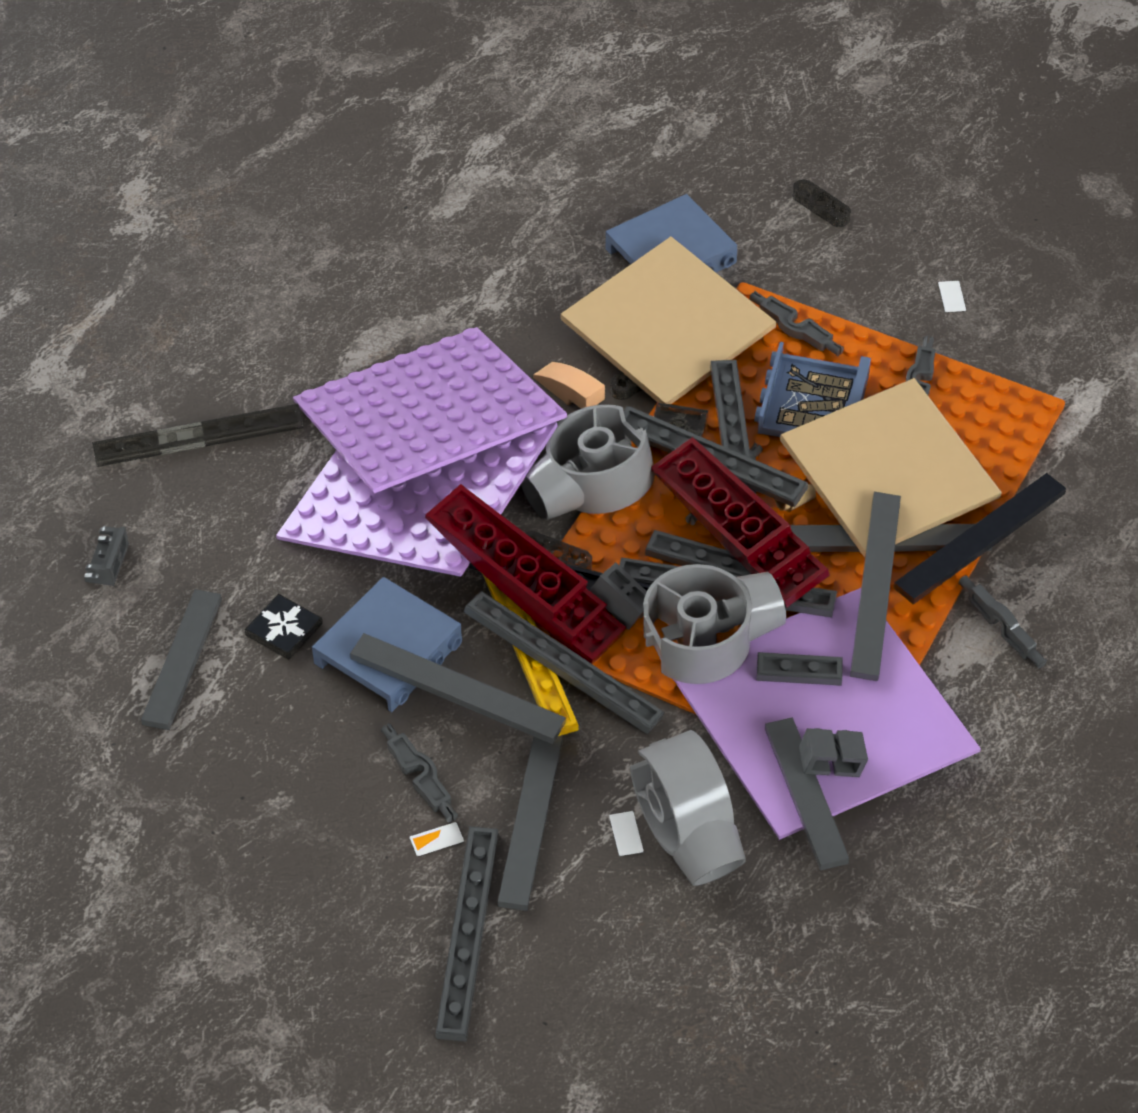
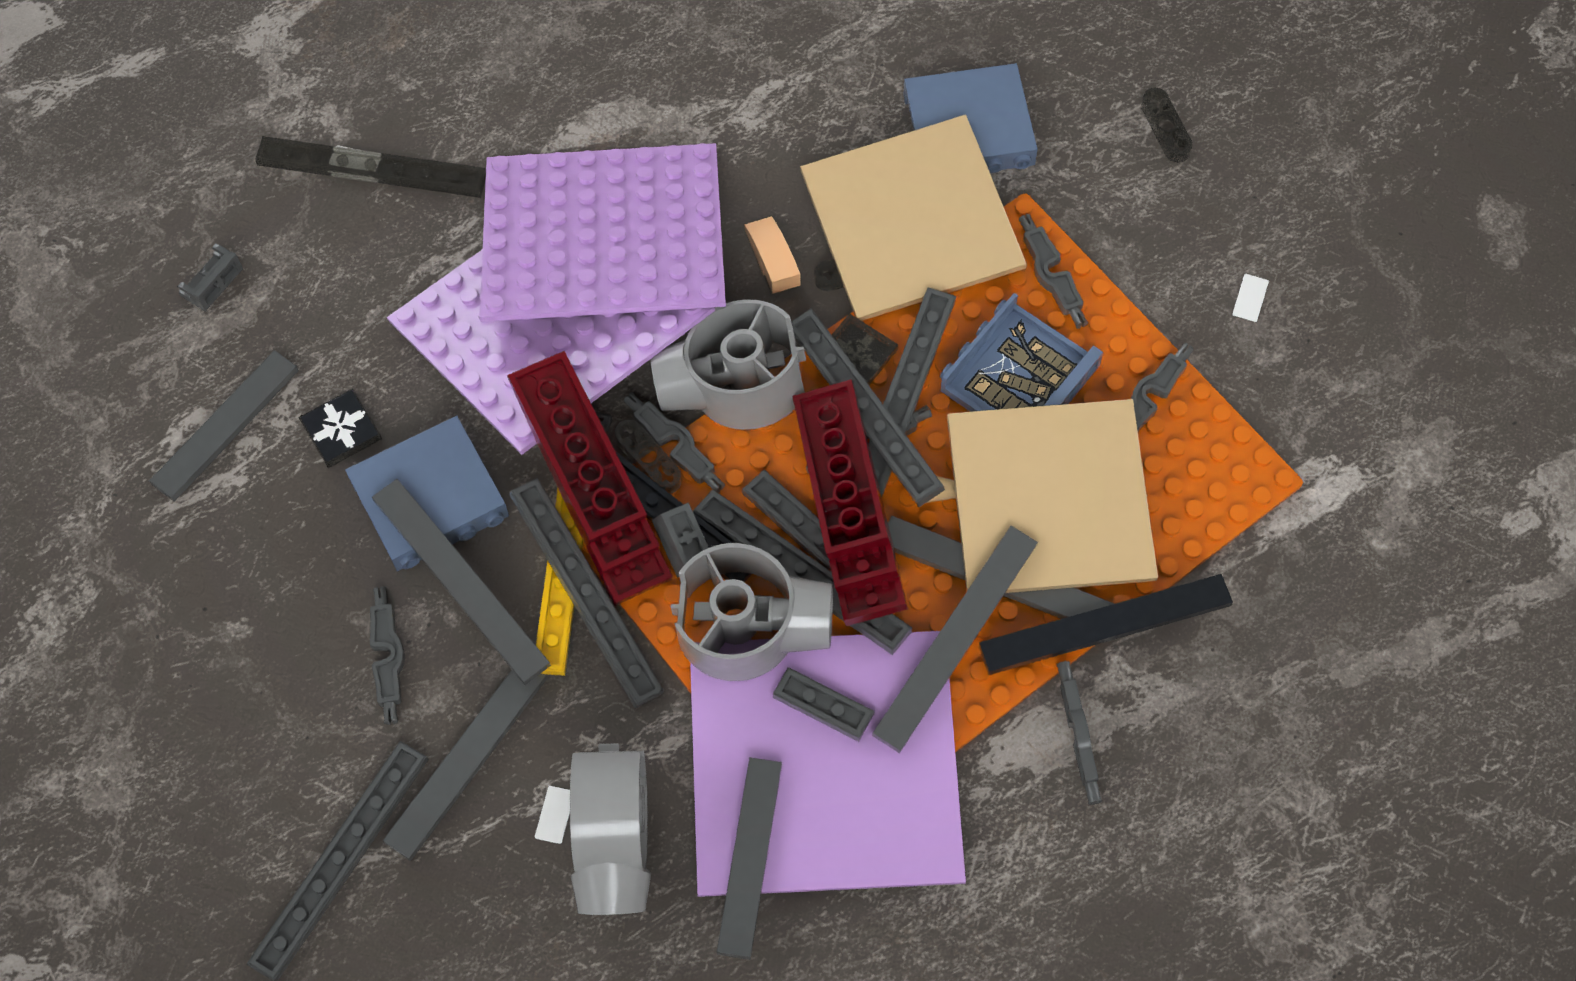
camera: 25 degrees right, 15 degrees up
(436, 839) = (365, 738): white sticker -> none
(596, 545) = (685, 452): none -> dark grey piece
(844, 749) = (813, 830): dark grey piece -> none

